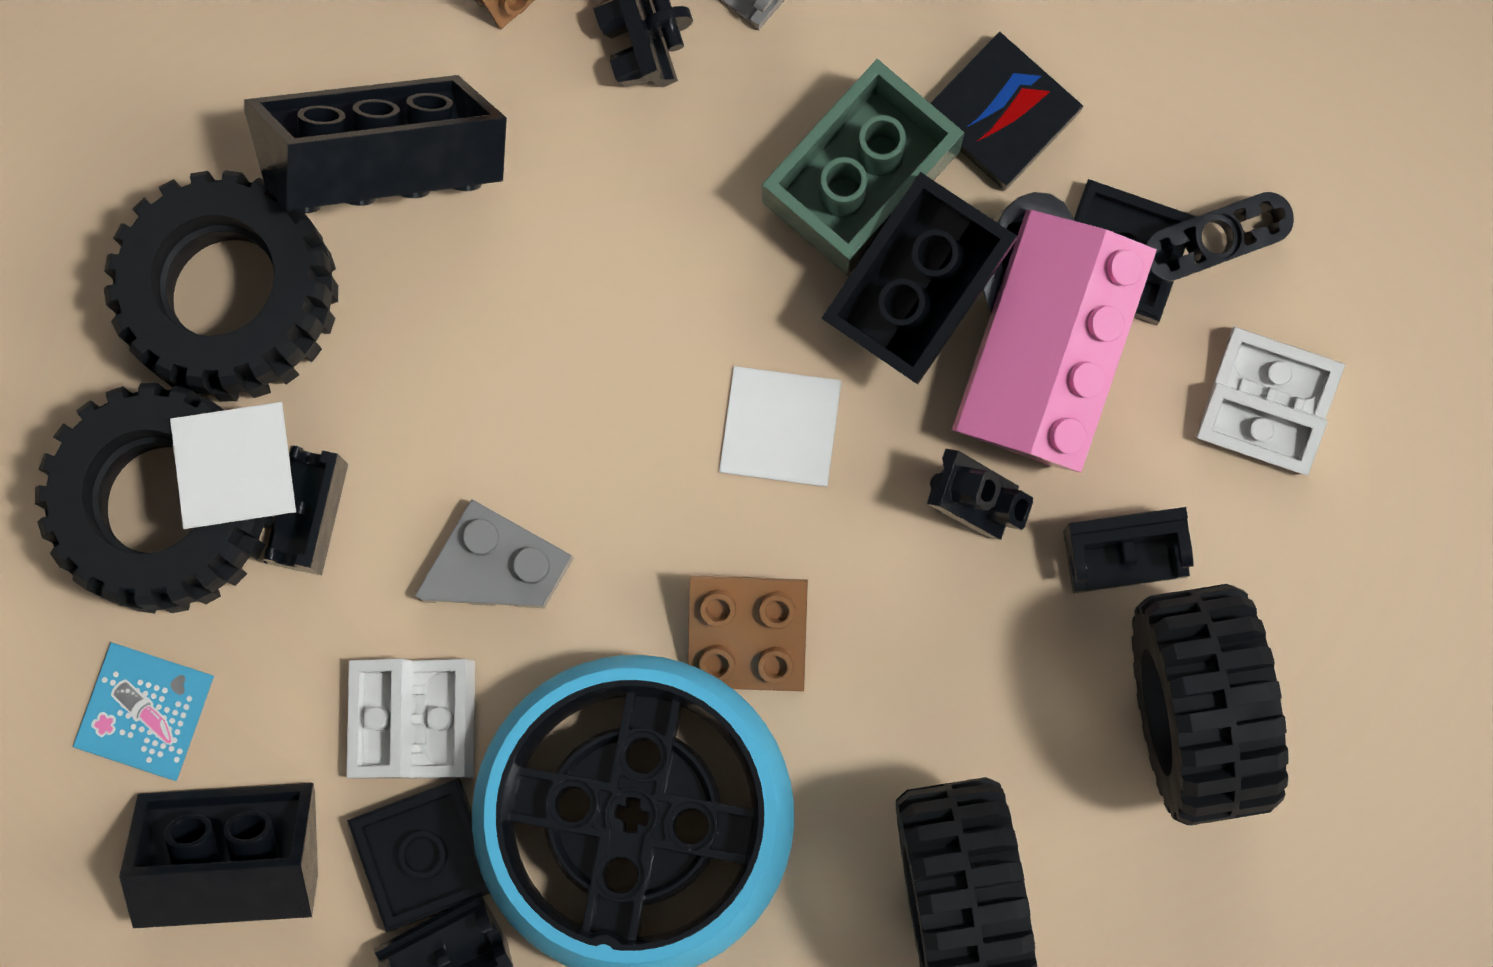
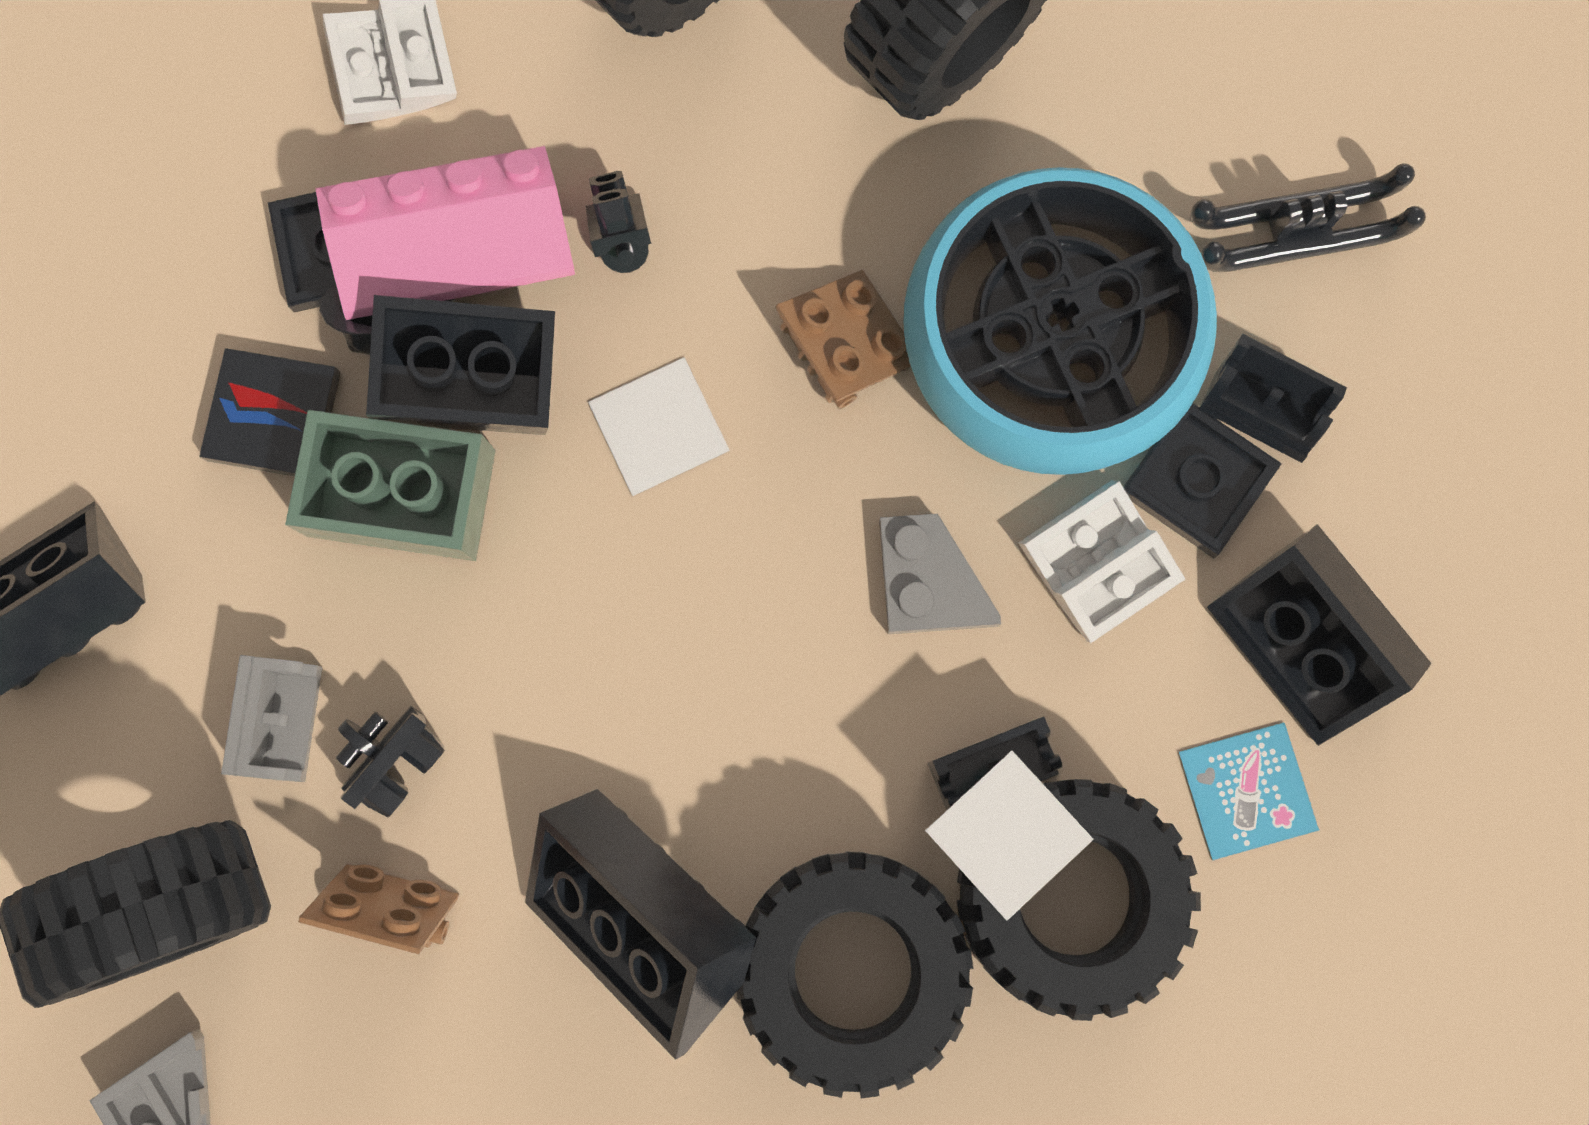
camera: 125 degrees left, 0 degrees up
(1128, 550) = (581, 89): black hinge -> none
(1229, 219) = (266, 155): black beam -> none

